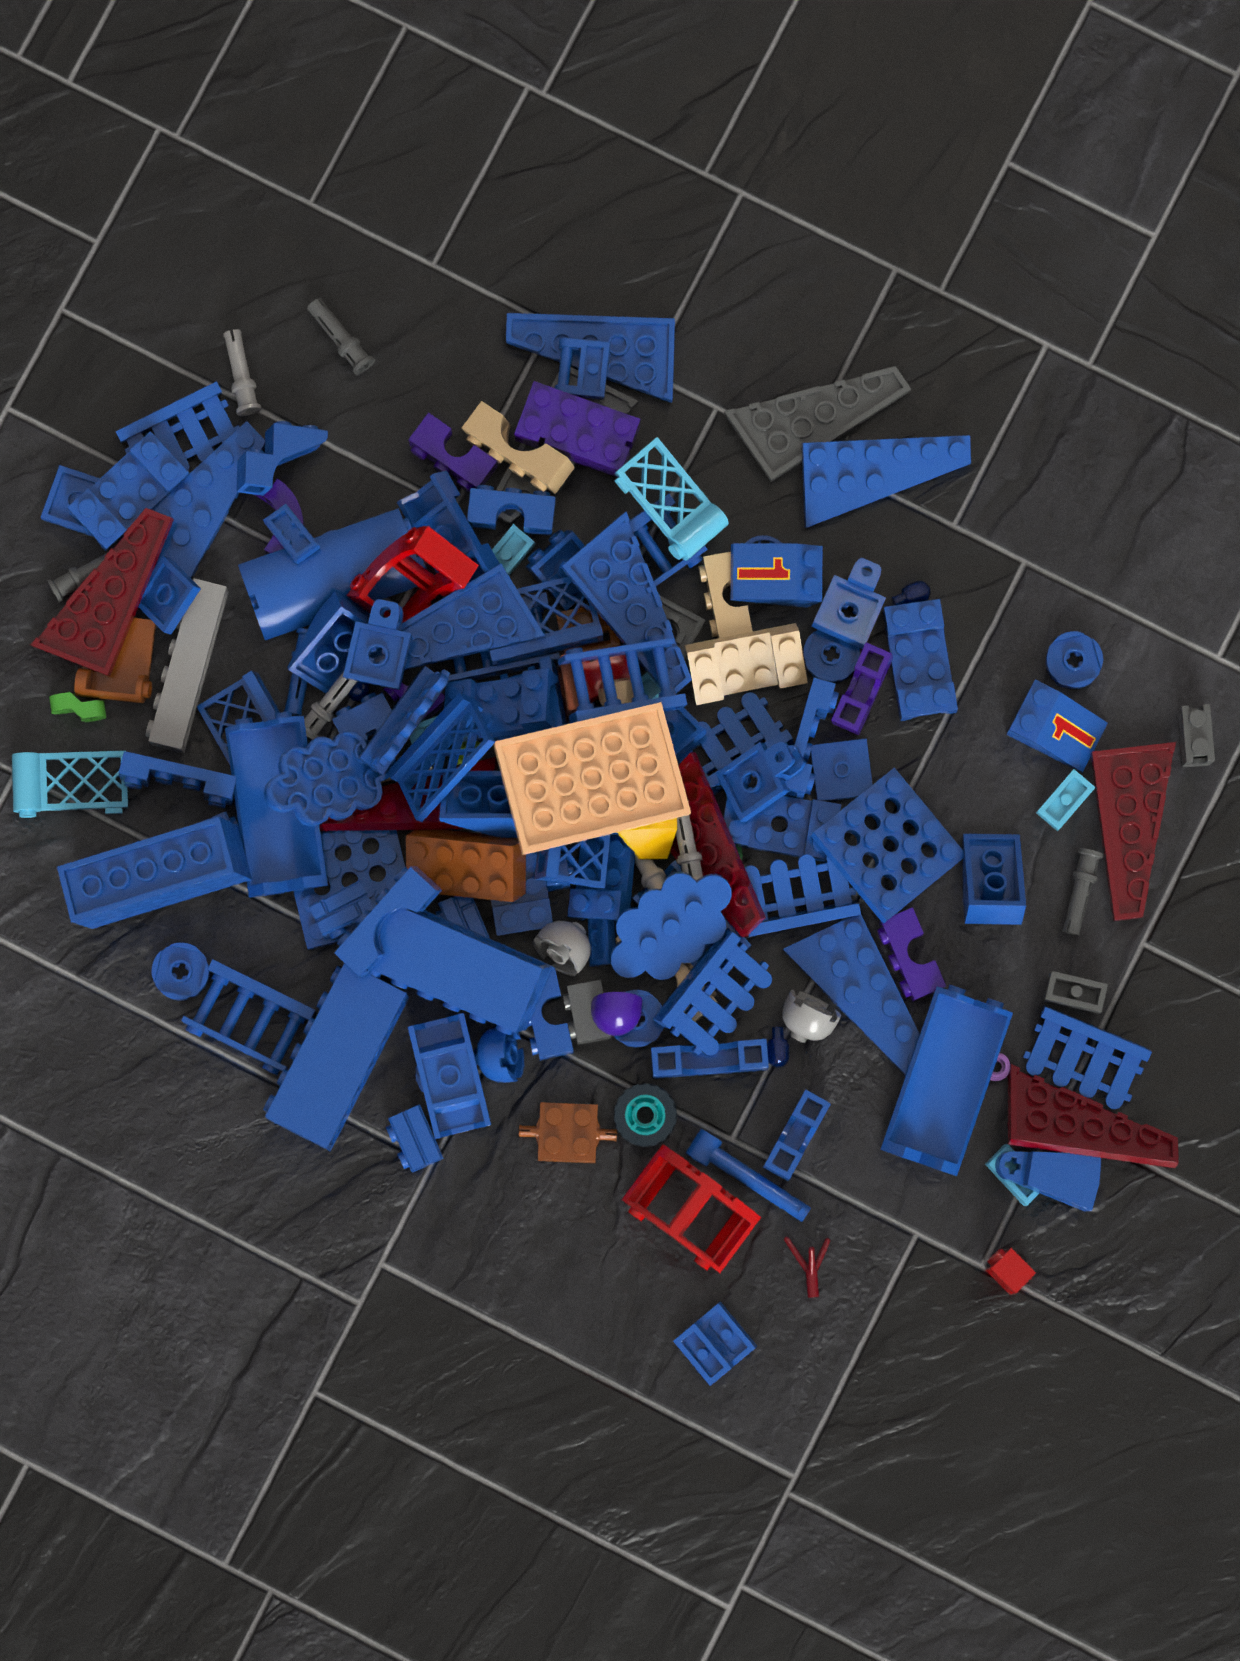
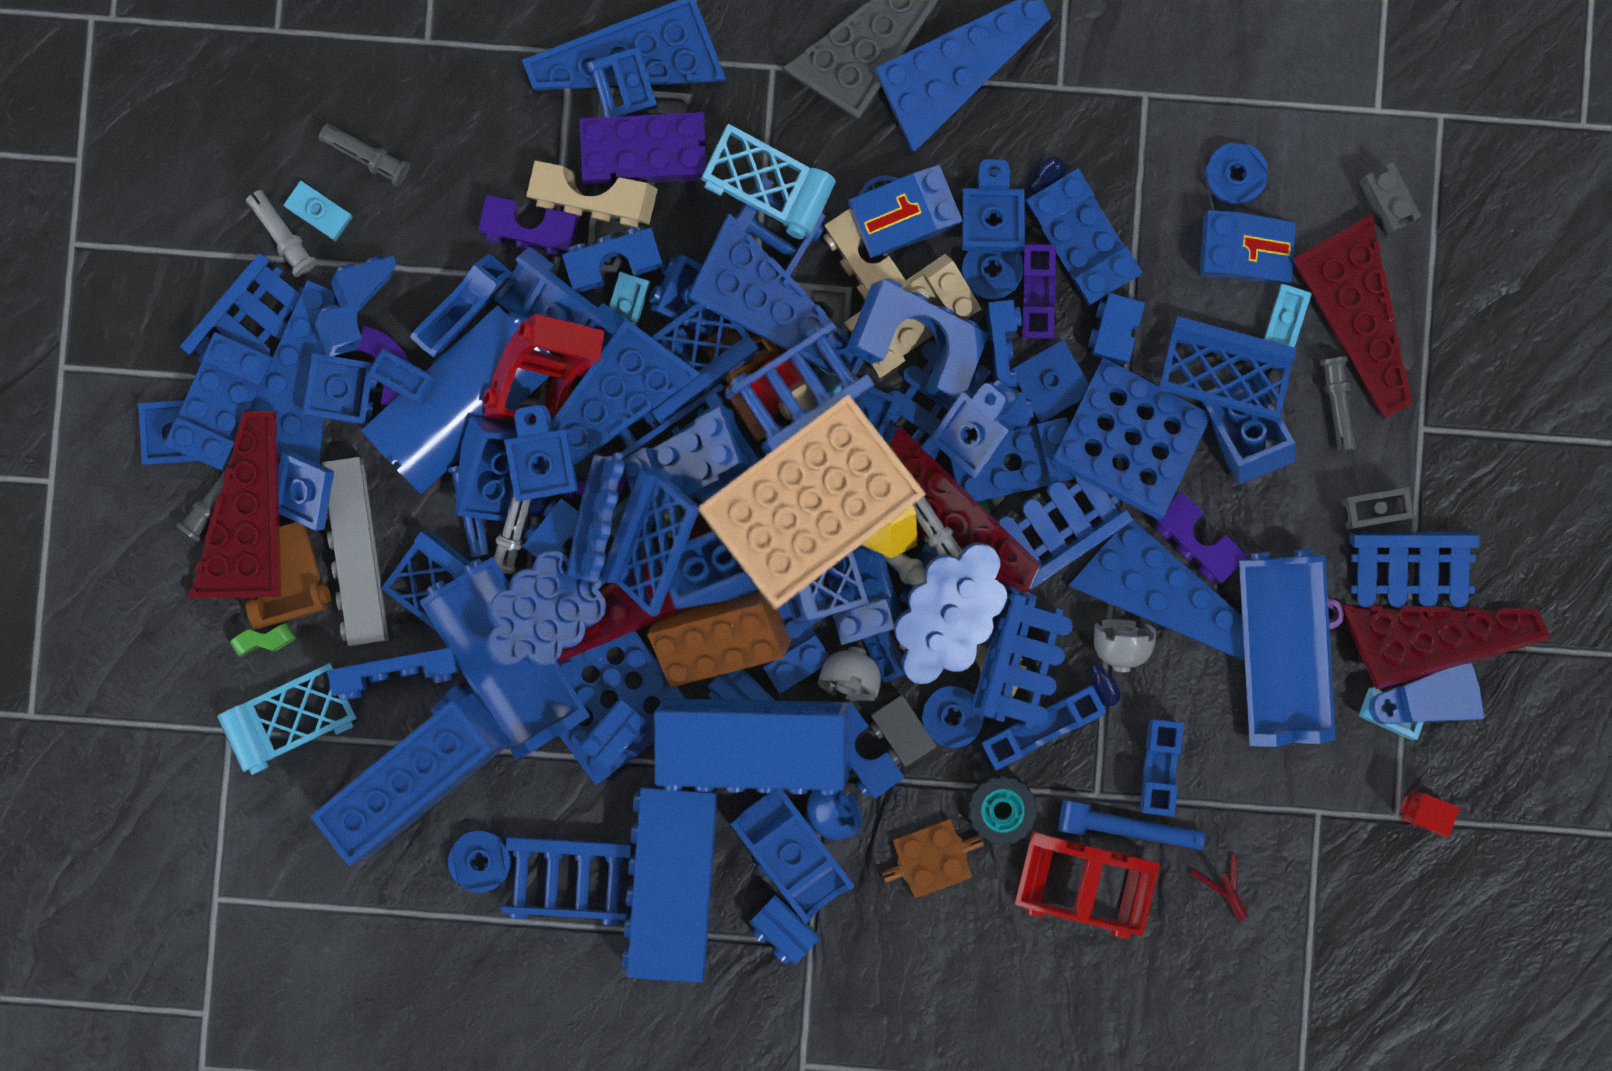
camera: 15 degrees left, 5 degrees up
(233, 523) = (338, 389): none -> blue plate
(280, 367) = (318, 210): none -> medium azure plate
(362, 500) = (462, 306): none -> blue arch
(363, 947) = (654, 768): blue arch -> none
(616, 1012) = (932, 722): dark purple helmet -> none
(715, 1343) = (1166, 1005): blue slope -> none
(774, 699) = (957, 340): none -> arch
(920, 739) = (1117, 320): none -> blue brick
(1013, 808) = (1234, 345): none -> blue fence

